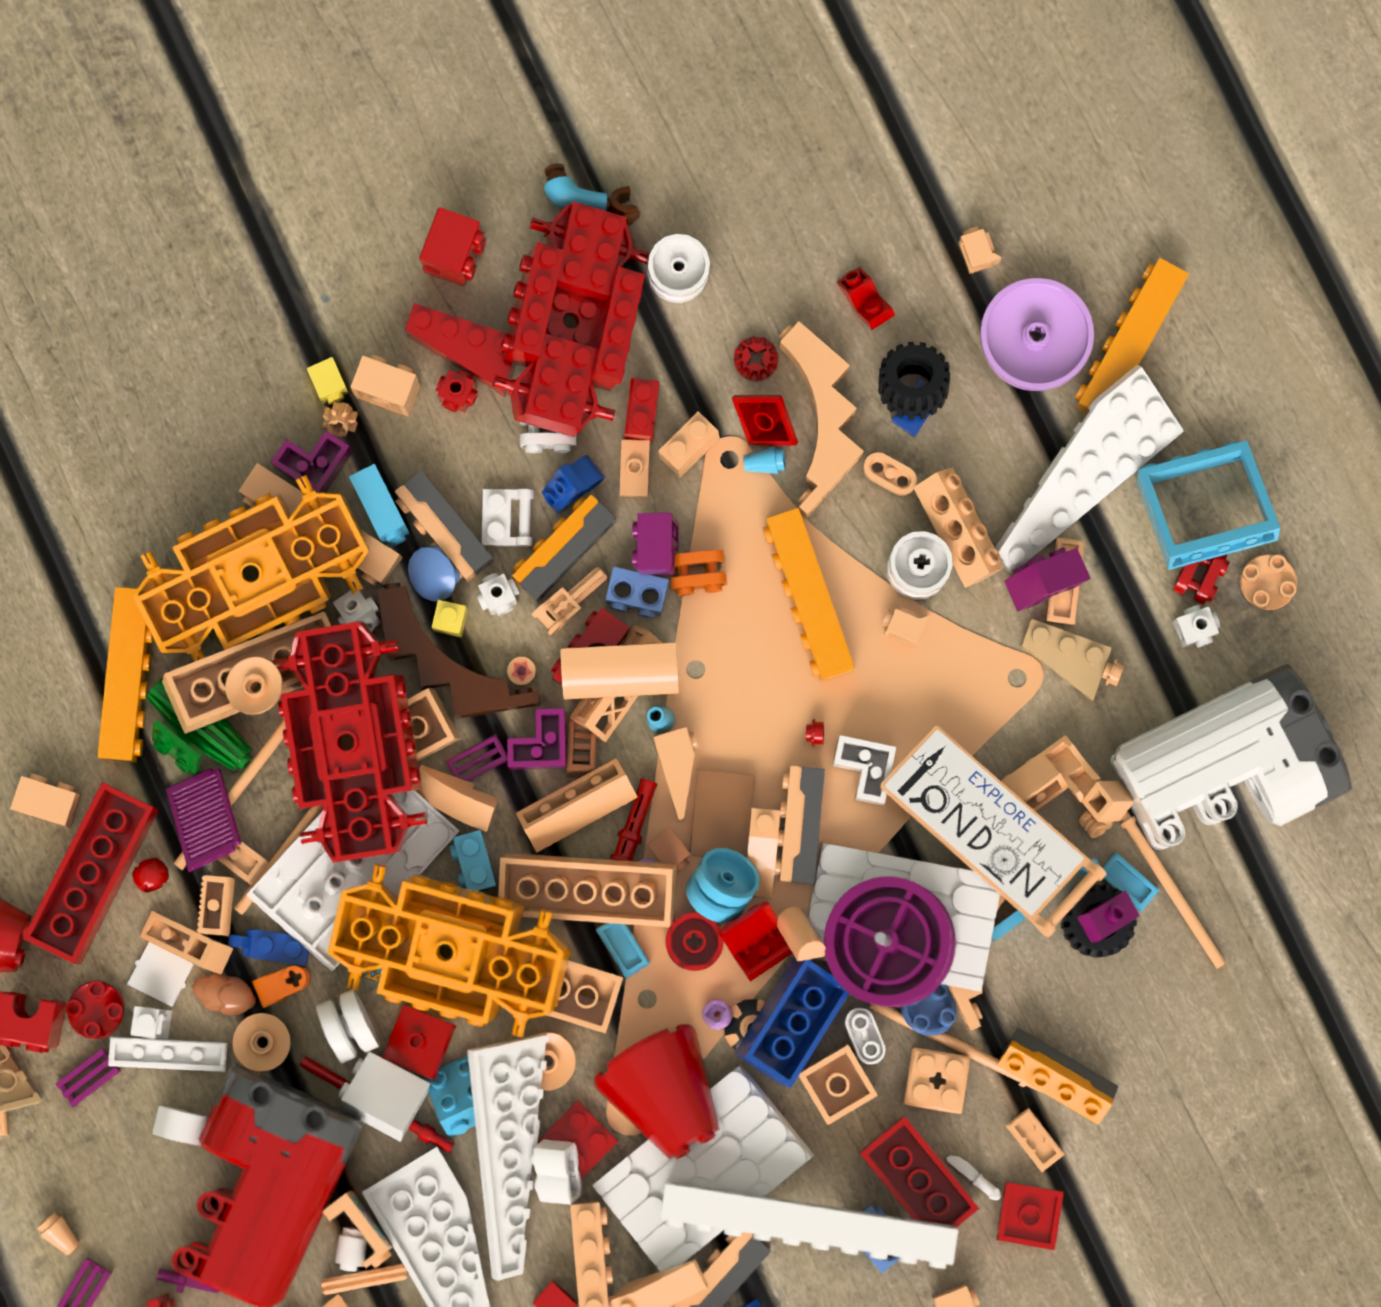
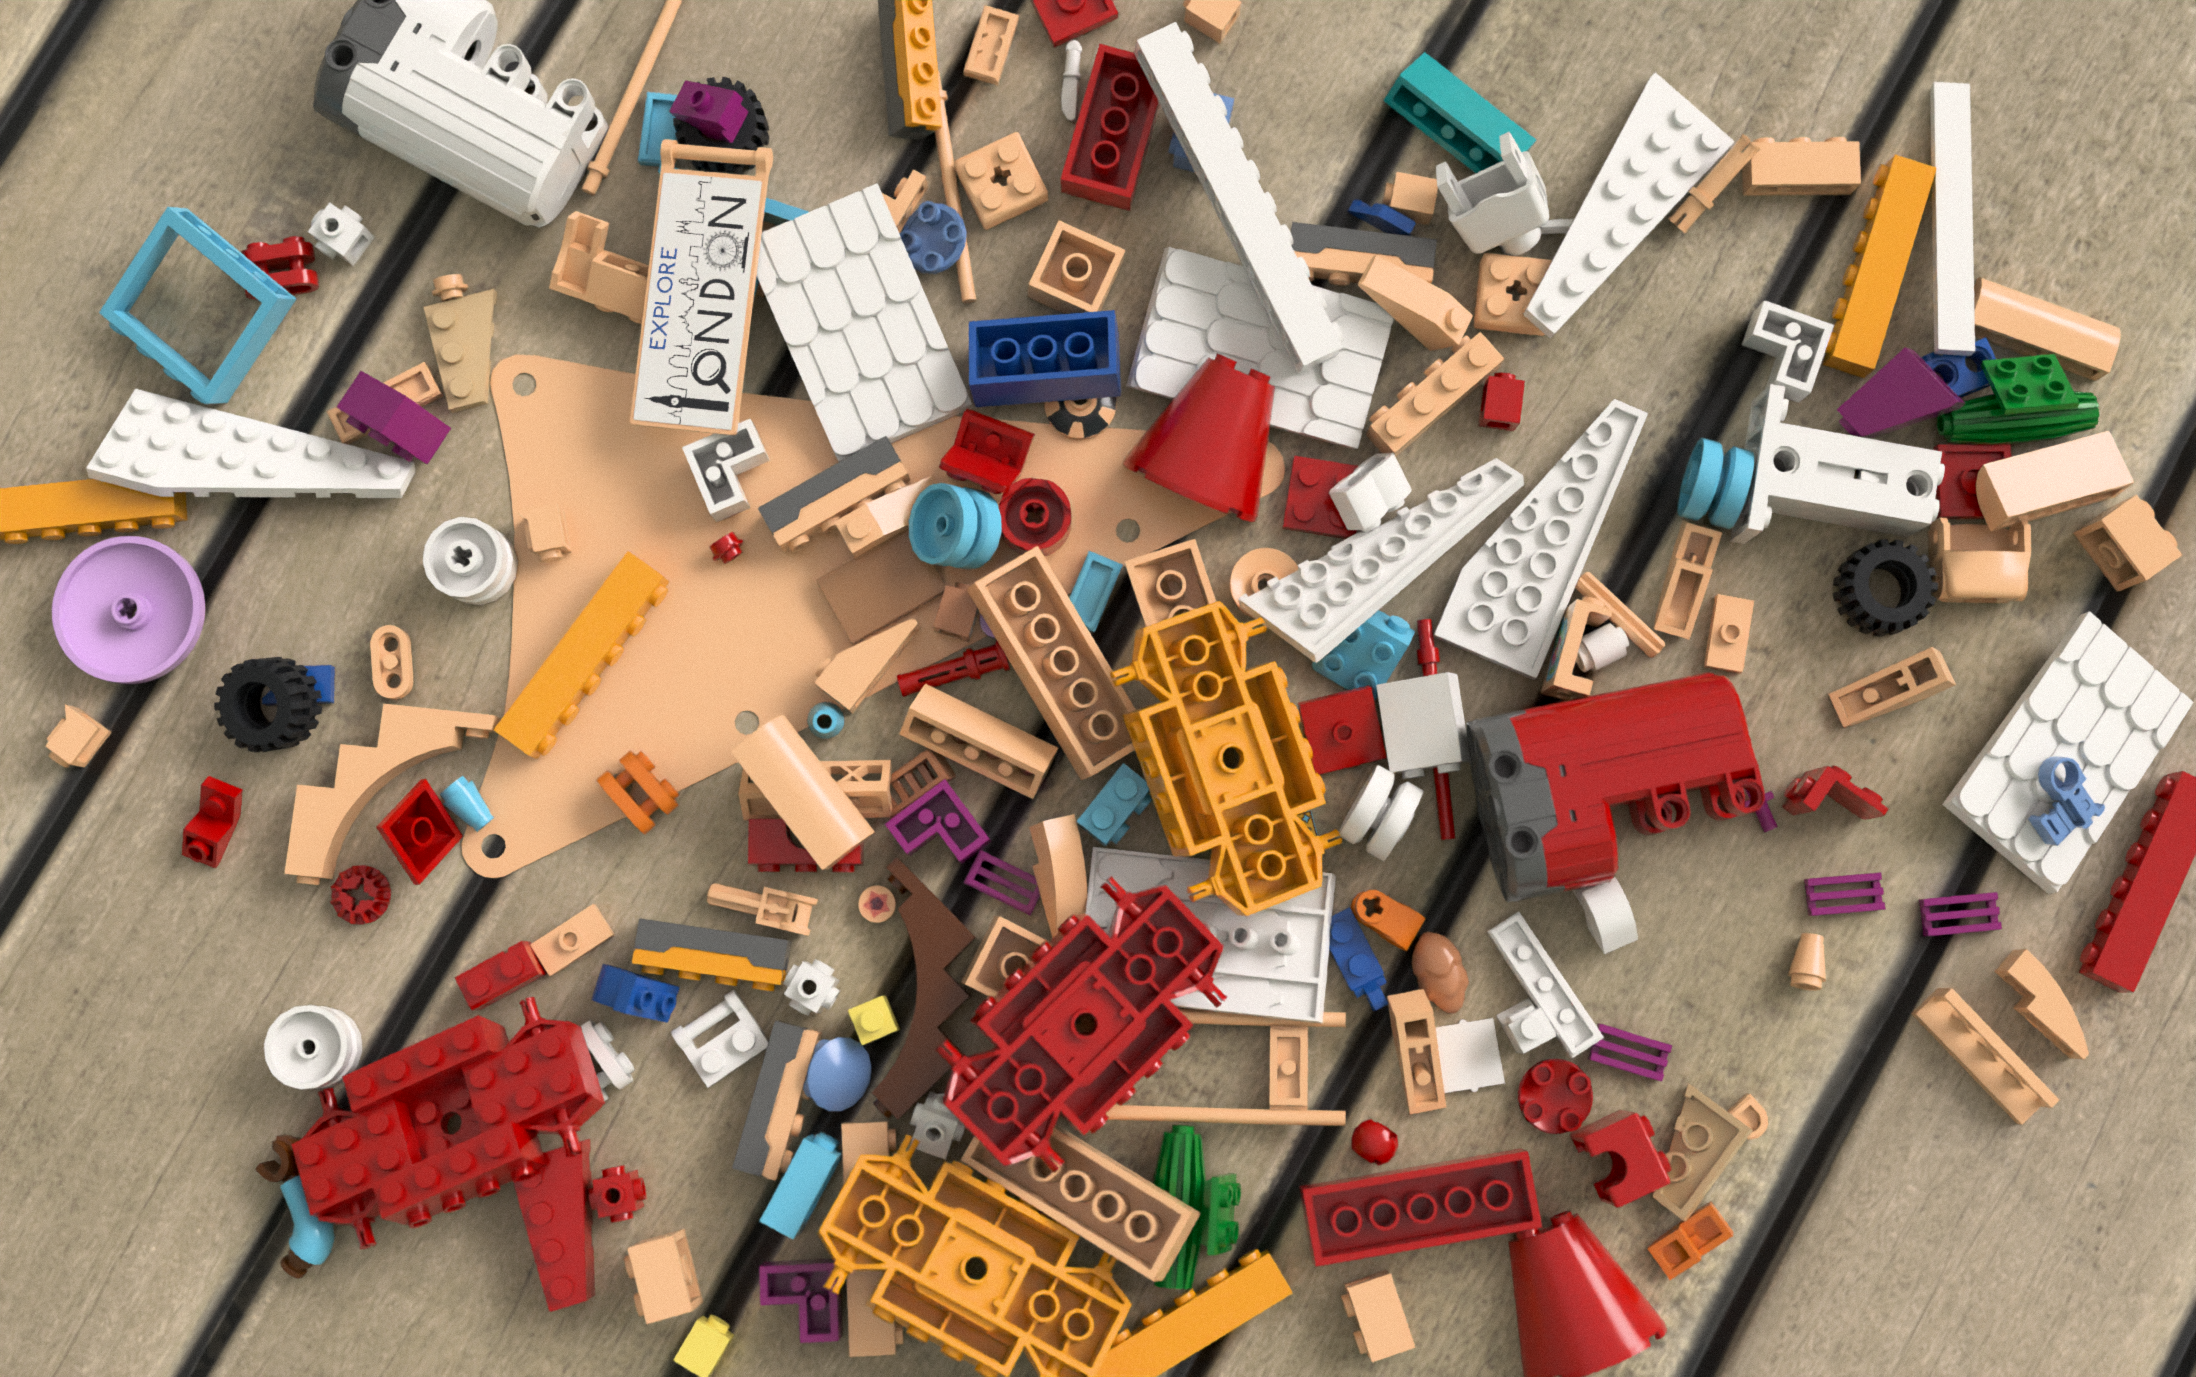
camera: 125 degrees left, 0 degrees up
(203, 818) = (1274, 1128): magenta window -> none
(216, 905) = (1356, 1046): light nougat brick -> none
(243, 679) = (1099, 1189): light nougat dish -> none
(246, 1042) = (1480, 890): light nougat dish -> none
(340, 419) = (737, 1301): light nougat gear -> none
(452, 247) = (456, 1316): red piece -> none
(639, 585) = (697, 844): medium blue brick -> none
(656, 543) = (637, 851): magenta brick -> none
(689, 444) = (504, 897): light nougat brick -> none
(717, 1014) = (1092, 445): lavender tile -> none
(800, 934) = (949, 411): light nougat brick -> none
(864, 1036) = (1007, 281): white brick -> none
(889, 942) = (891, 309): magenta wheel -> none
(946, 521) = (402, 568): light nougat brick -> none
(1105, 803) = (595, 197): light nougat brick -> none
(1268, 582) = (242, 195): light nougat dish -> none

